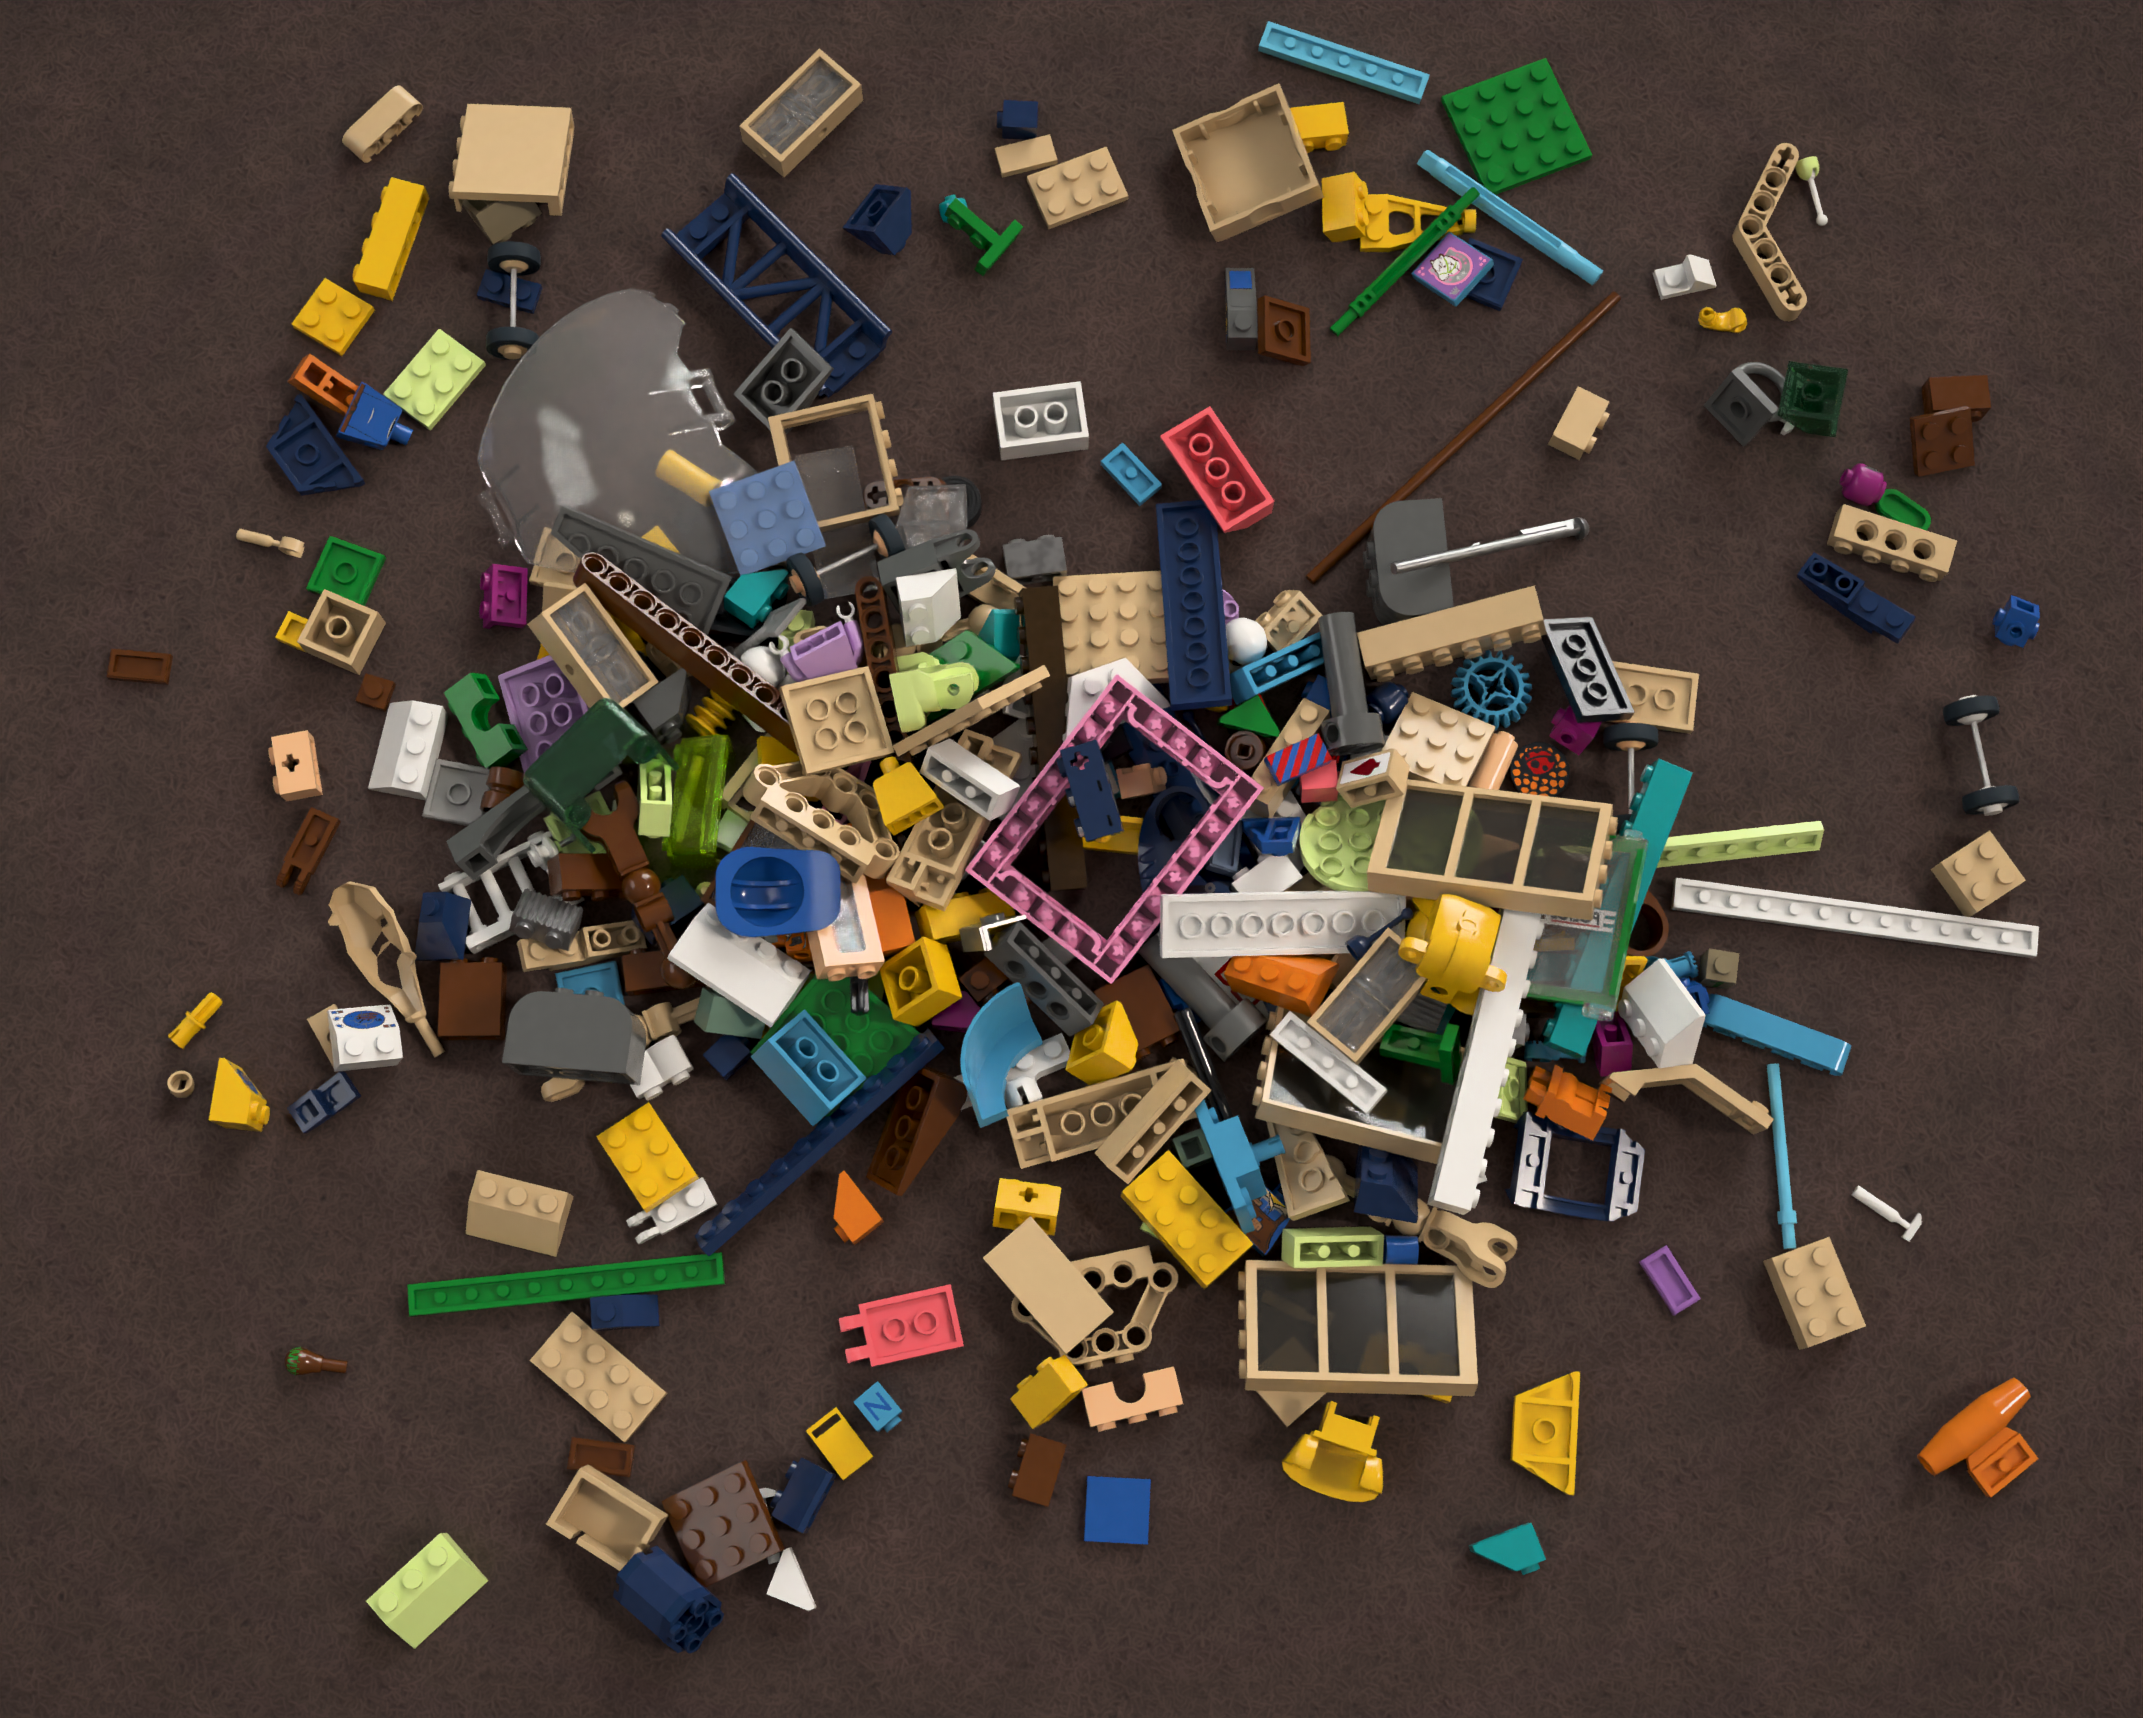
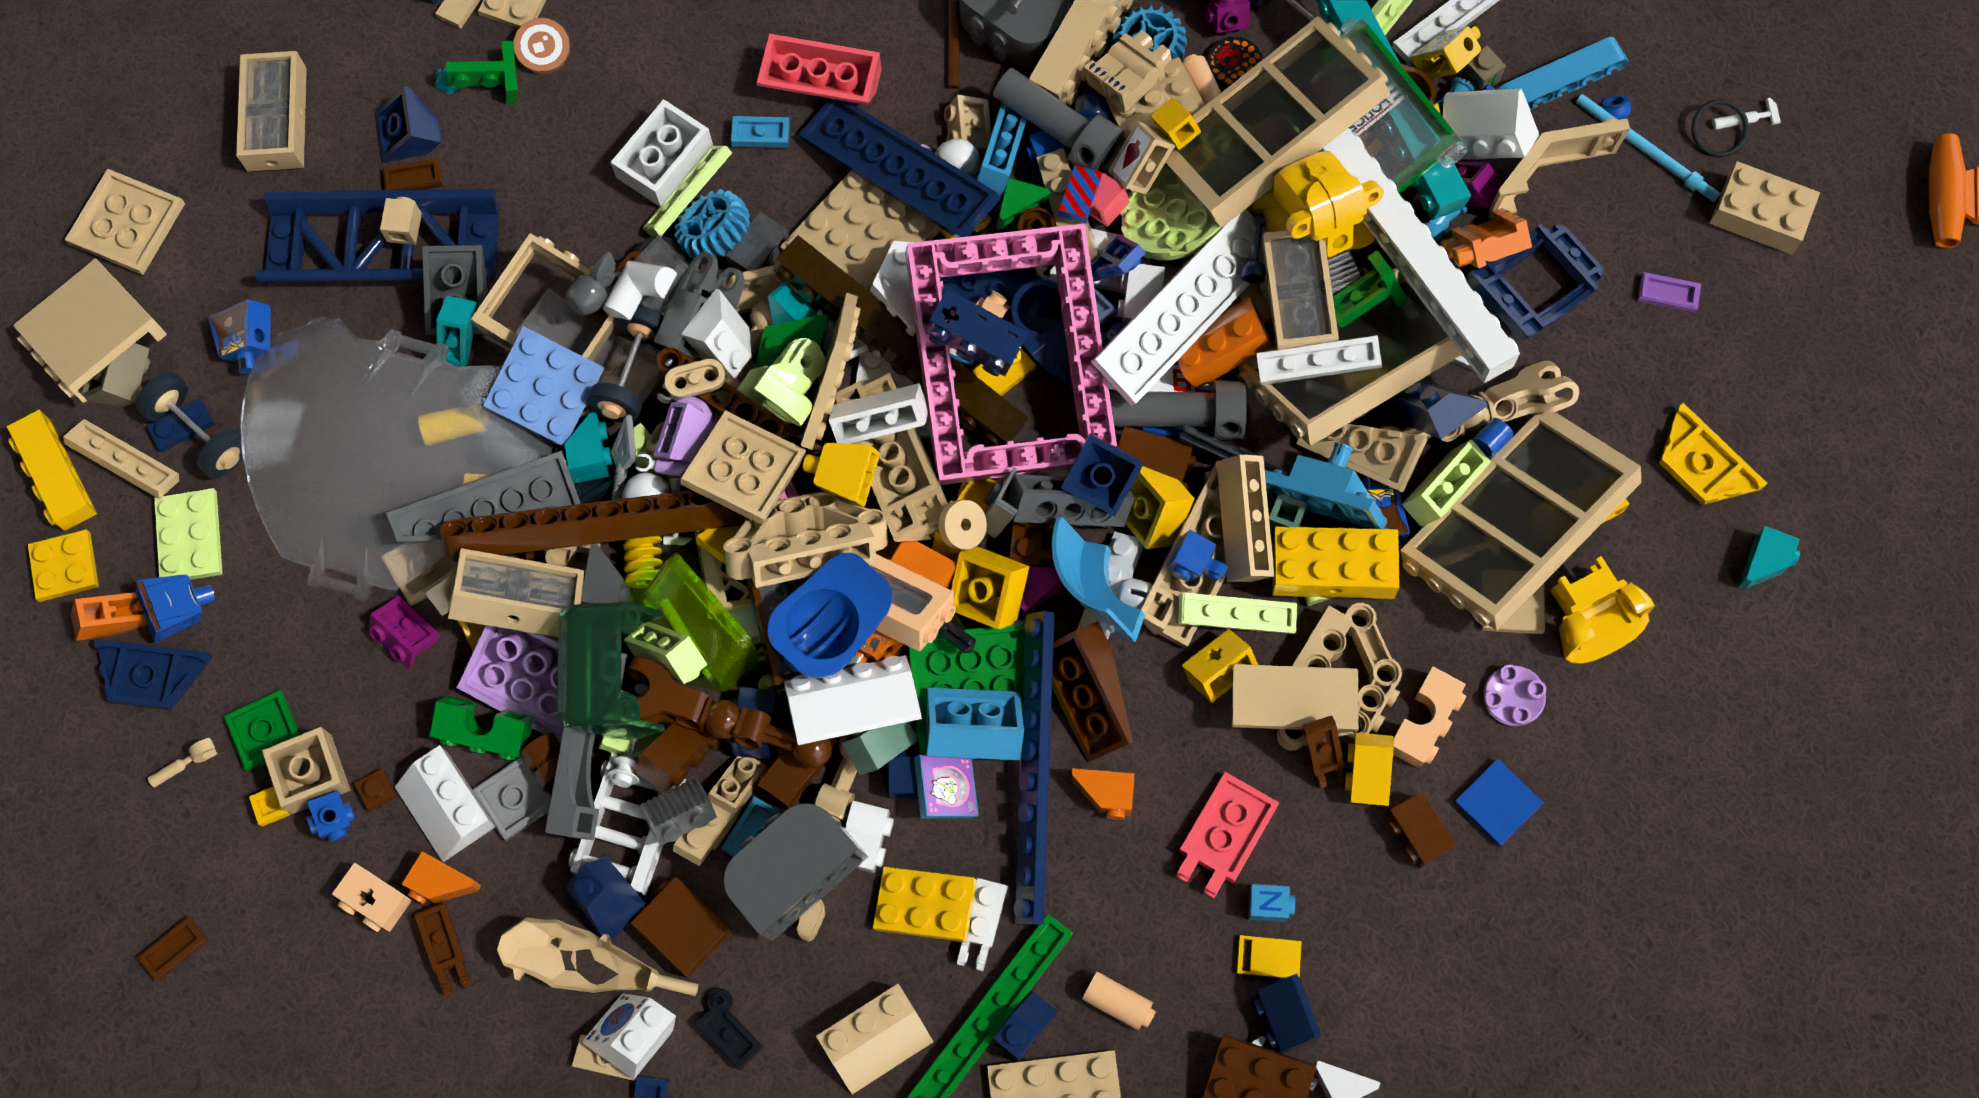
camera: 40 degrees left, 5 degrees down
(335, 685) = (325, 806): none -> blue brick
(349, 798) = (437, 881): none -> orange slope
(429, 1104) = (727, 1030): none -> black hinge
(445, 277) = (121, 458): none -> tan plate
(613, 266) = (242, 333): none -> blue torso
(621, 97) = (125, 221): none -> tan plate
(704, 1363) = (1119, 1002): none -> light nougat brick
(744, 1092) = (945, 787): none -> tile
(753, 412) = (456, 328): none -> teal slope
(802, 290) = (400, 220): none -> tan brick
(852, 261) = (414, 176): none -> reddish brown tile
(866, 479) = (588, 291): none -> dark grey piece
(870, 621) = (695, 378): none -> tan plate
(904, 505) = (635, 282): none -> white brick
(945, 932) = (950, 524): none -> tan piece
(1017, 513) = (712, 224): none -> dark azure gear
(1028, 1342) = (1324, 749): none -> reddish brown hinge
(1031, 466) = (687, 190): none -> yellowish green tile
(1043, 249) = (541, 45): none -> nougat tile
(1079, 1183) = (1237, 613): none -> yellowish green tile
(1081, 985) = (1102, 474): none -> dark blue slope
(1085, 1110) = (1193, 557): none -> blue brick
(1214, 1448) = (1514, 695): none -> lavender dish
(1422, 778) = (1175, 123): none -> yellow brick
(1441, 699) = (1128, 70): none -> tan hips
(1704, 928) = (1458, 48): none -> yellow torso
(1792, 1107) = (1619, 111): none -> blue piece
(1824, 1197) = (1741, 113): none -> black piece

